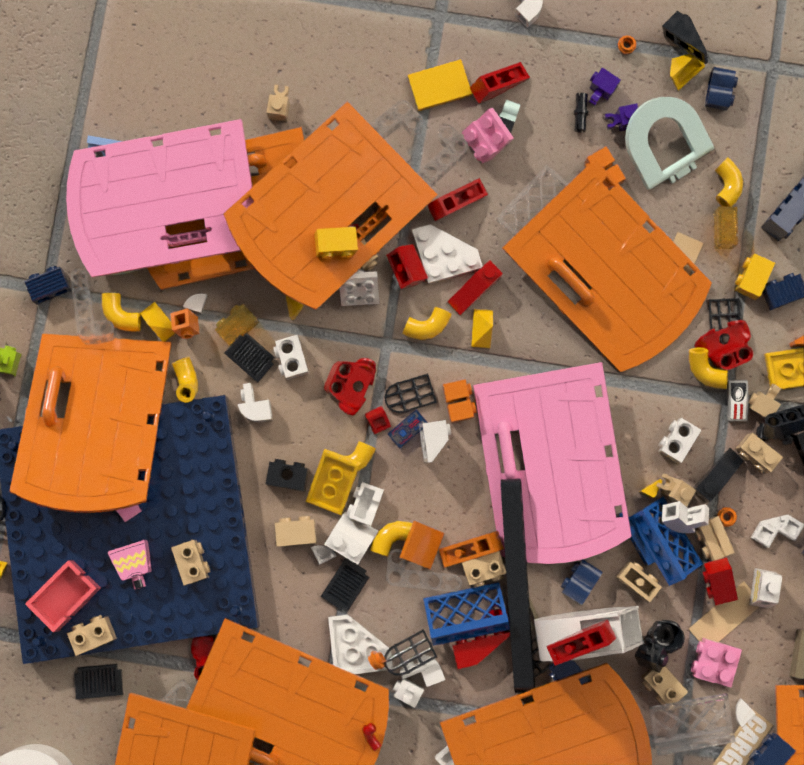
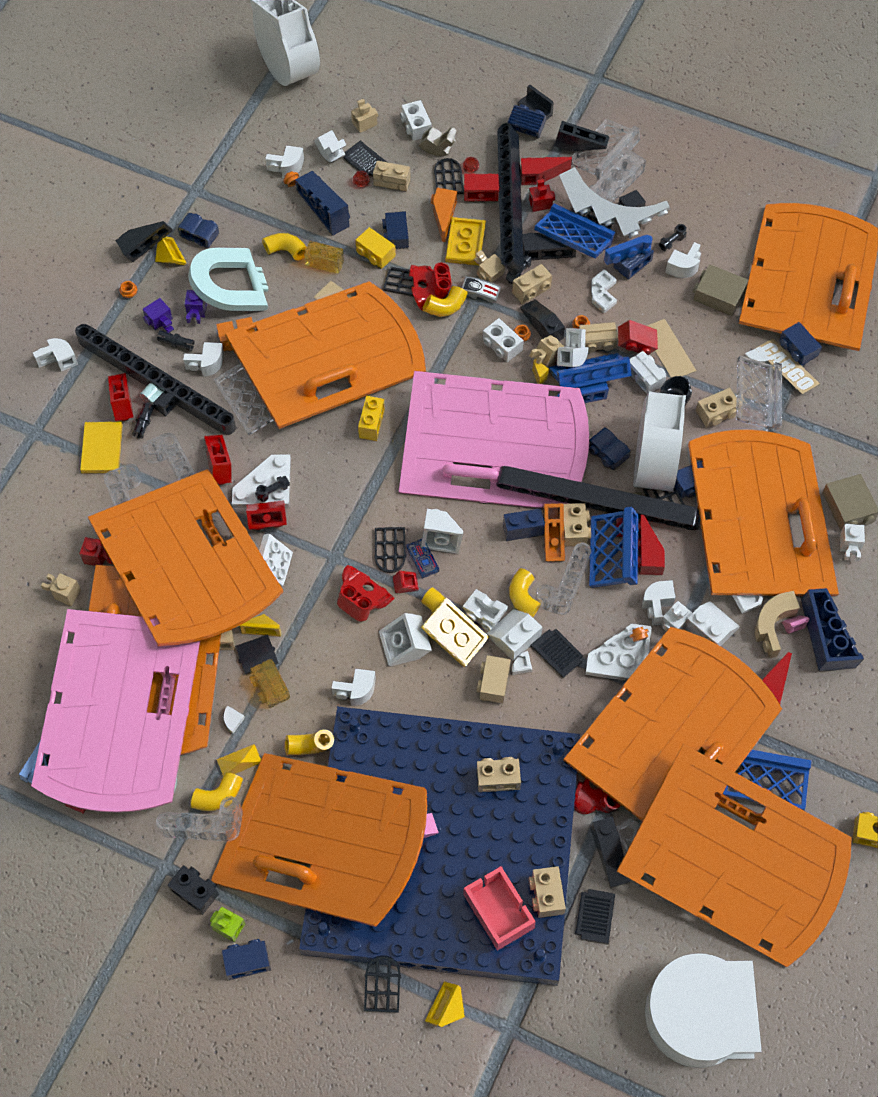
camera: 75 degrees left, 20 degrees down
(29, 321) = (193, 889): none -> black brick
(47, 285) = (161, 859): dark blue brick -> none
(132, 562) = (483, 832): bright pink torso -> none
(160, 679) = (609, 850): none -> black slope
(185, 323) = (251, 729): orange brick -> none
(250, 356) = (305, 678): black window -> none
(265, 304) = (255, 652): none -> black piece
(276, 479) = (432, 685): black brick -> none
(295, 355) = (319, 635): white brick -> none
(313, 436) = (404, 639): none -> white slope
(321, 114) = (93, 552): none -> red brick
(336, 242) = (223, 554): yellow brick -> none
(368, 732) = (712, 653): red arm -> none
(412, 729) = (711, 624): none -> white slope
(417, 655) = (648, 610): black window -> none
(422, 544) = (537, 569): orange slope -> none
(427, 256) = (262, 491): none -> black bar
(430, 328) = (332, 514): yellow cylinder -> none
(457, 391) = (400, 505): orange piece -> none
(468, 517) = (523, 524): none -> dark blue brick
(474, 113) = (143, 420): none -> black pin
(475, 287) = (307, 464): red slope -> none
(482, 328) = (348, 470): yellow slope -> none
(487, 136) = (168, 414): bright pink plate -> none
(529, 99) = (104, 347): none -> black beam
(545, 334) = (371, 418): none -> yellow brick
(566, 155) = (208, 362): none -> white brick
(582, 642) = (668, 425): red slope -> none
(634, 578) = (621, 401): tan brick -> none
(651, 655) = (693, 405): black brick -> none
(684, 599) = (646, 372): none -> white brick
(702, 458) = (523, 329): none -> orange plate
(716, 662) = (707, 364): bright pink plate -> none
(765, 588) = (653, 308): white torso -> none

